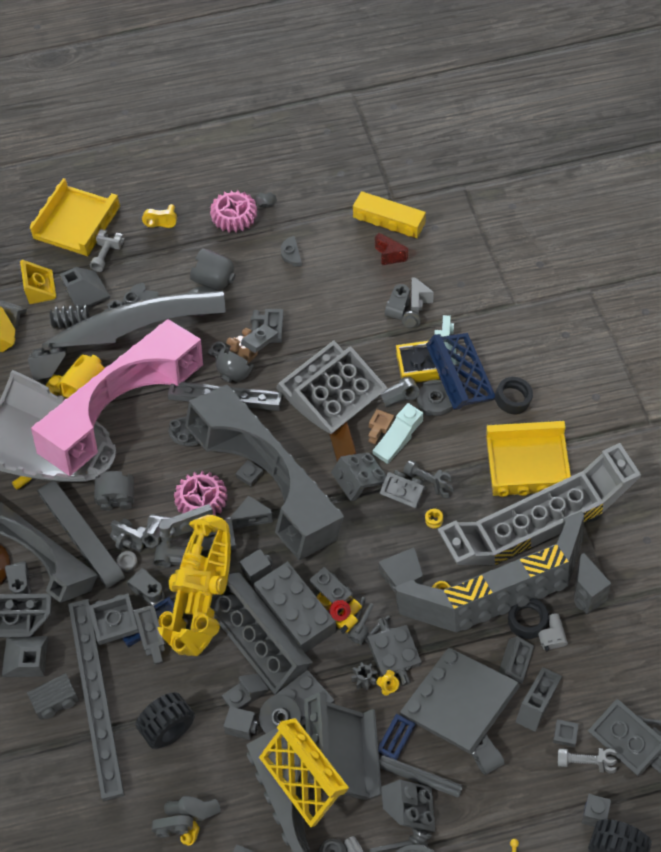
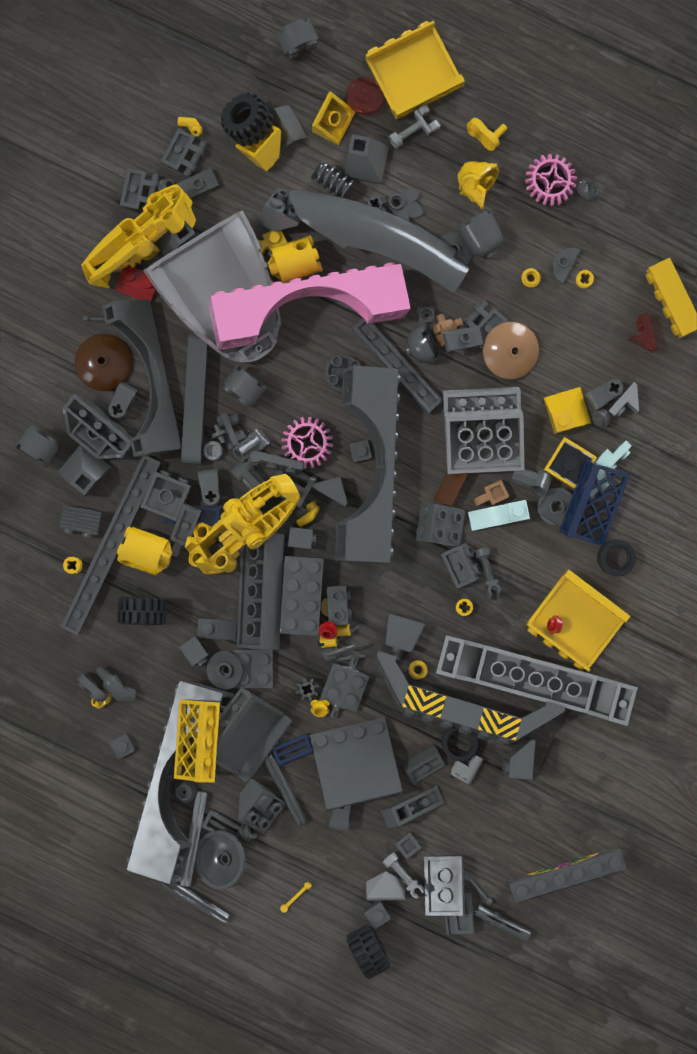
camera: 35 degrees right, 30 degrees up
(50, 254) = (364, 96): none -> clear red tile
(70, 733) = (66, 565): none -> yellow bush
(129, 673) = (144, 551): none -> yellow cylinder
(180, 244) = (476, 180): none -> yellow head
(248, 541) = (308, 517): none -> yellow arm
(272, 272) = (534, 273): none -> yellow plate
(302, 333) = (499, 346): none -> medium nougat dish
(314, 246) = (590, 280): none -> yellow bush
(382, 335) = (567, 410): none -> yellow slope
(515, 472) = (555, 624): none -> red plate
(580, 783) = (385, 887): none -> light grey slope

